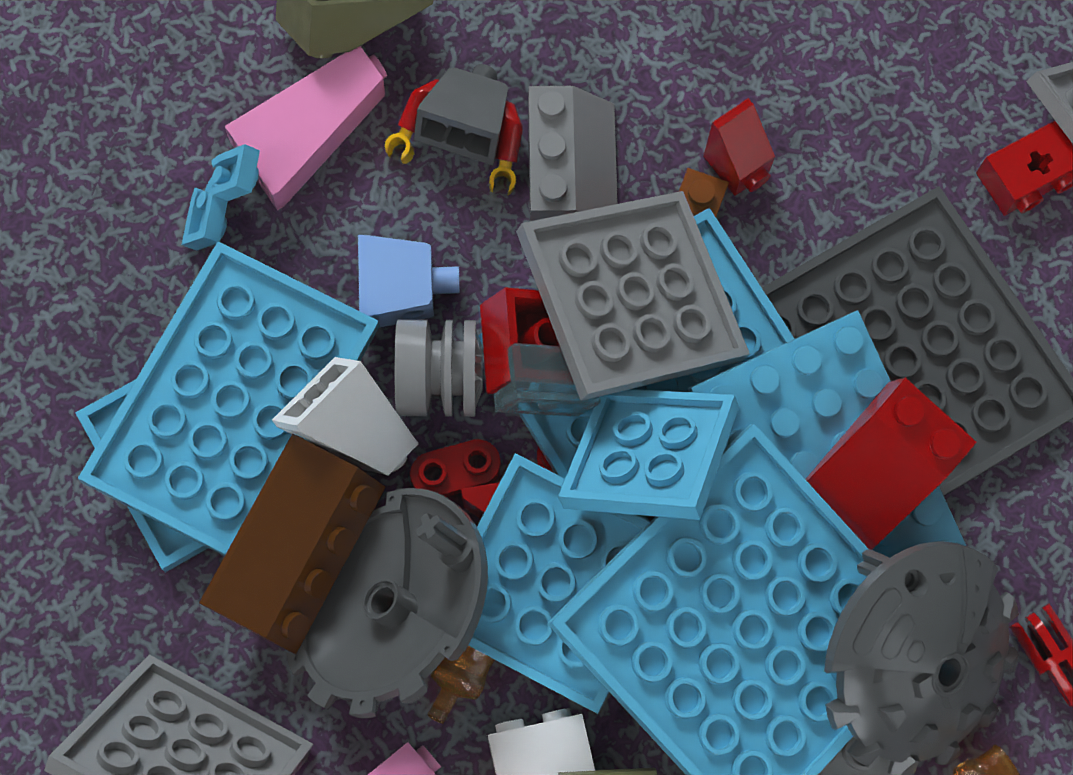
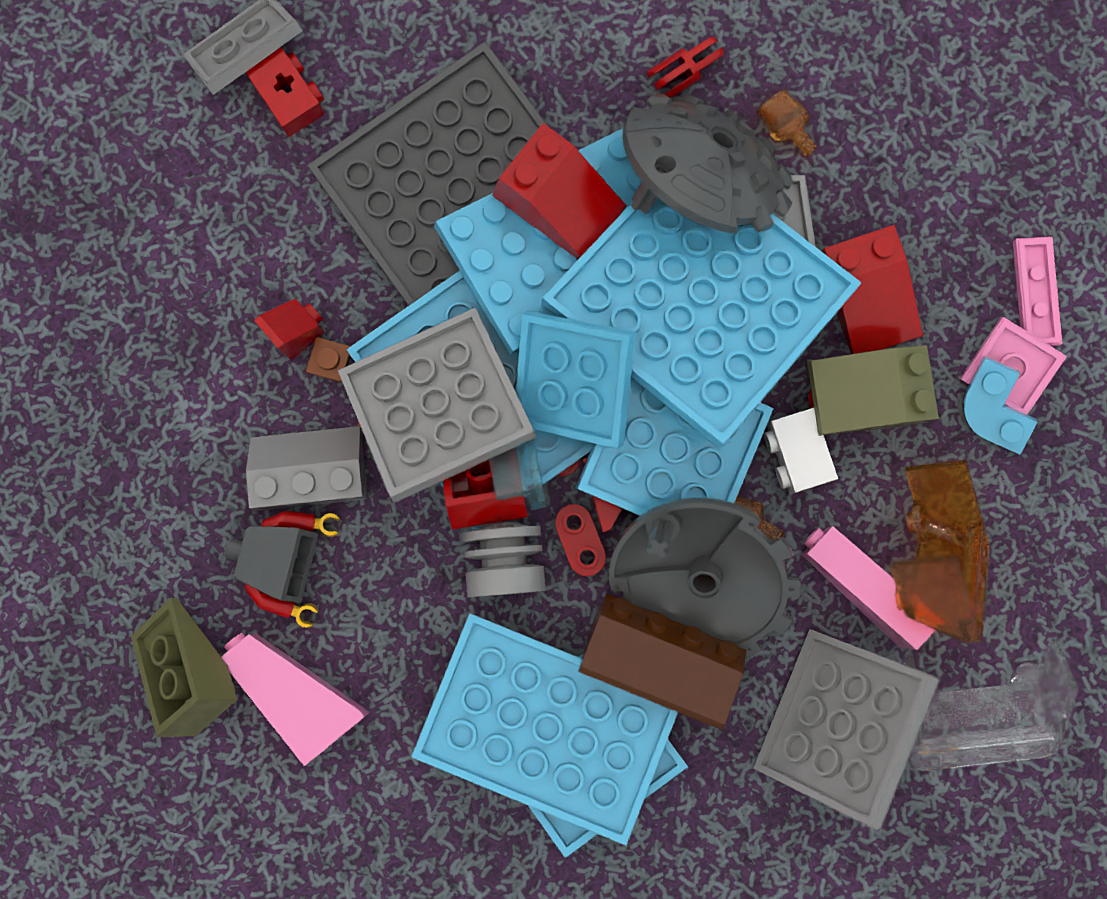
camera: 90 degrees left, 10 degrees up
(233, 177) = (351, 754): medium azure plate -> none
(349, 418) = (557, 629): white slope -> none
(400, 279) = (426, 601): light blue torso -> none

